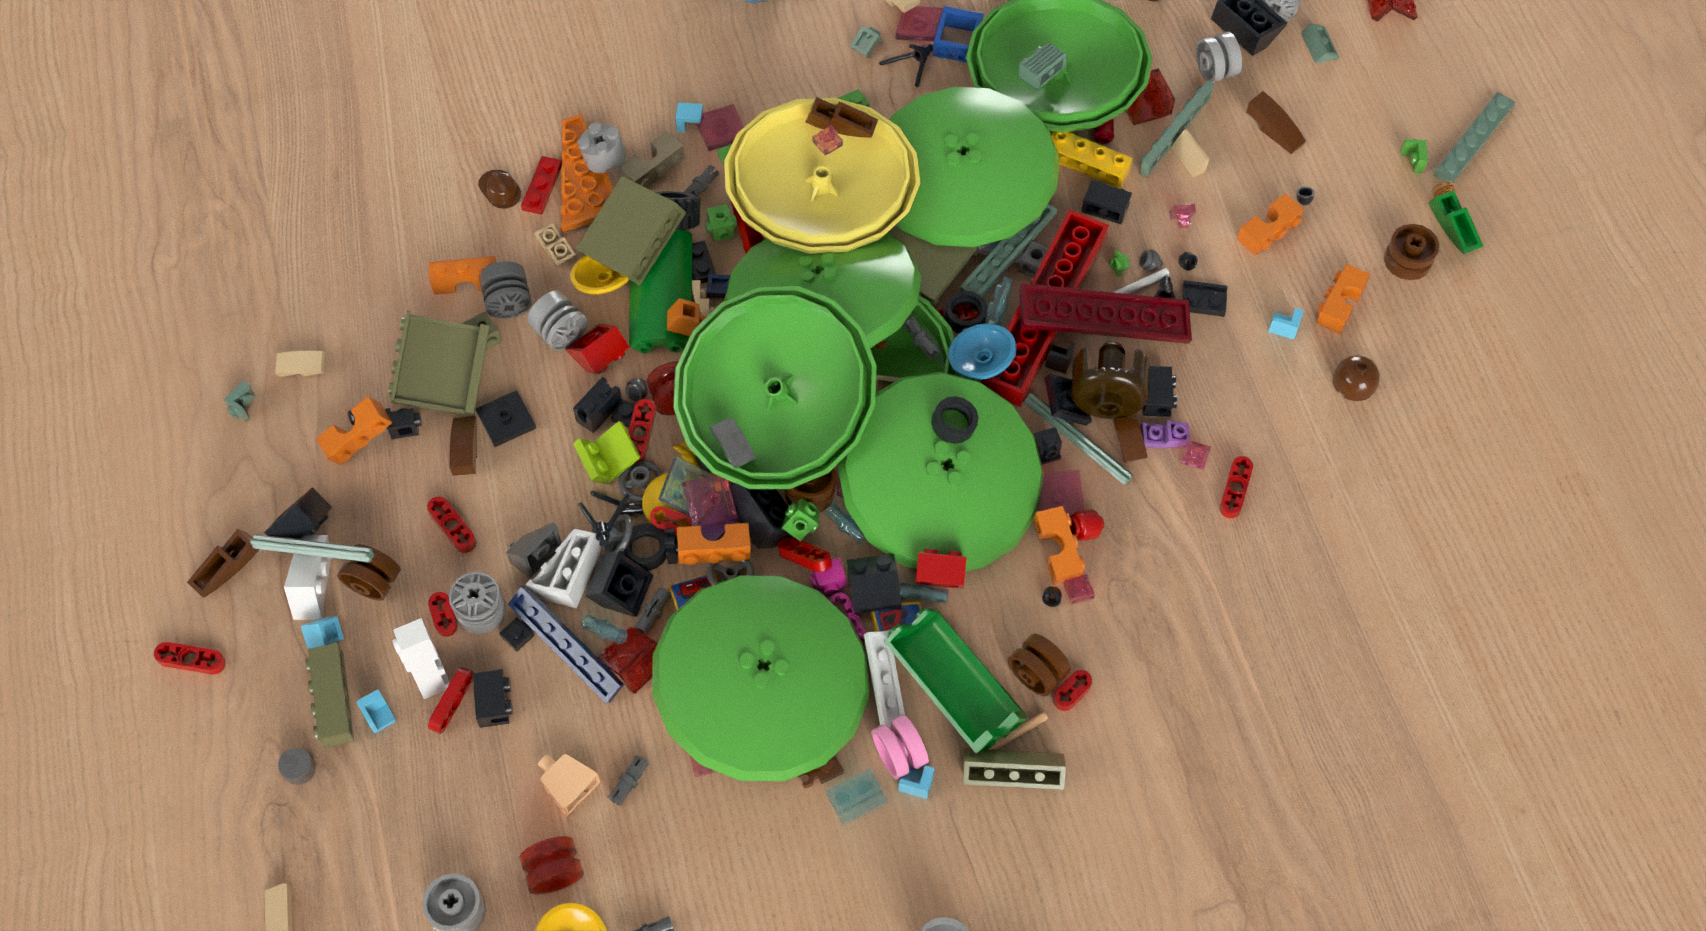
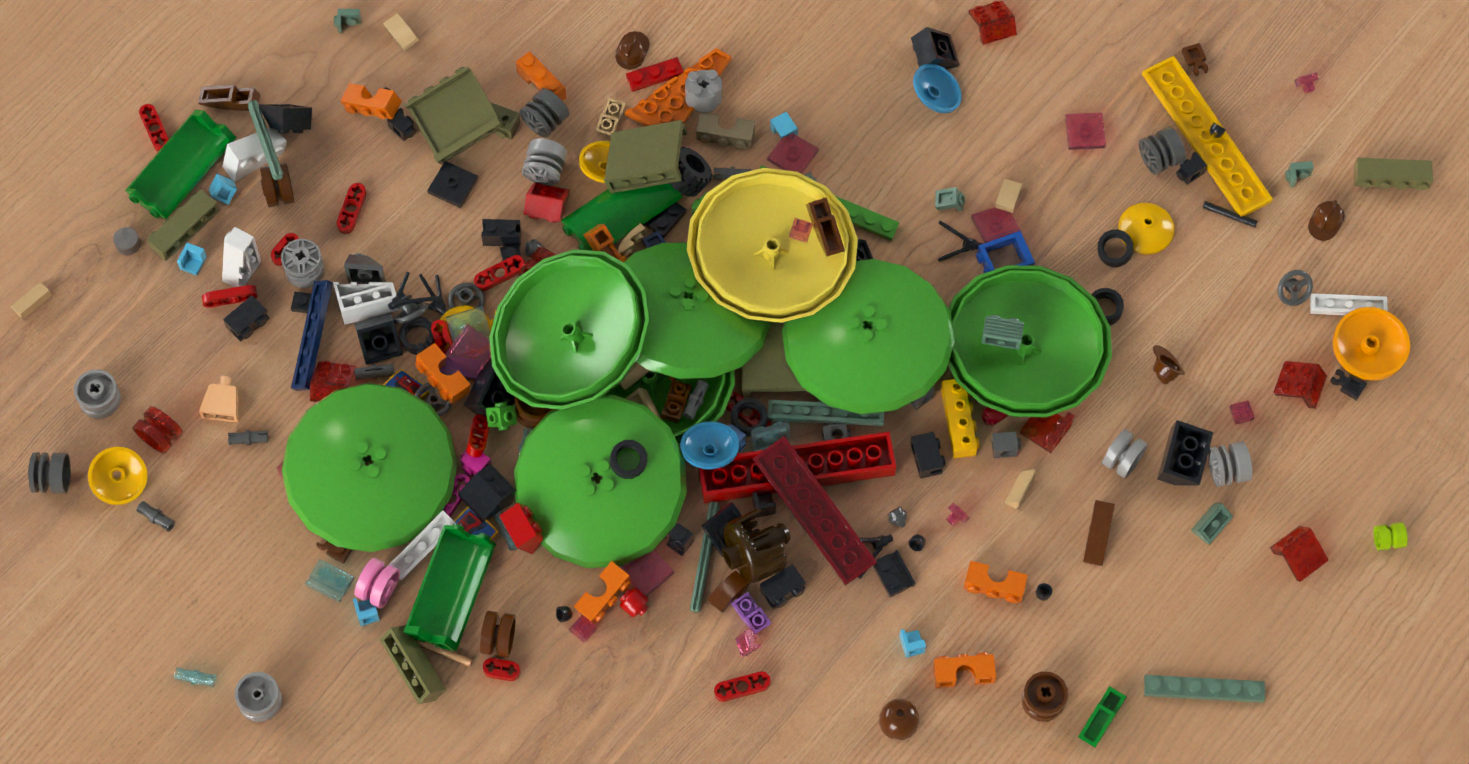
camera: 55 degrees right, 5 degrees up
(257, 657) = (180, 164): none -> green cylinder
(463, 446) = (412, 173): reddish brown slope -> none
(604, 629) = (338, 351): clear light blue pin -> none
(608, 454) = (464, 264): lime bracket -> none
(733, 442) = (511, 332): flat silver slope -> none
(909, 355) = (676, 401): none -> reddish brown slope
(1119, 262) = (877, 495): bright green plate -> none
(1140, 139) = (1005, 444): none -> dark grey brick
(1144, 282) = (866, 519): white bar -> none
(1179, 124) = (1044, 464): sand green plate -> none
(1418, 153) = (1147, 655): bright green bracket -> none
(1443, 188) = (1128, 690): clear orange tile -> none

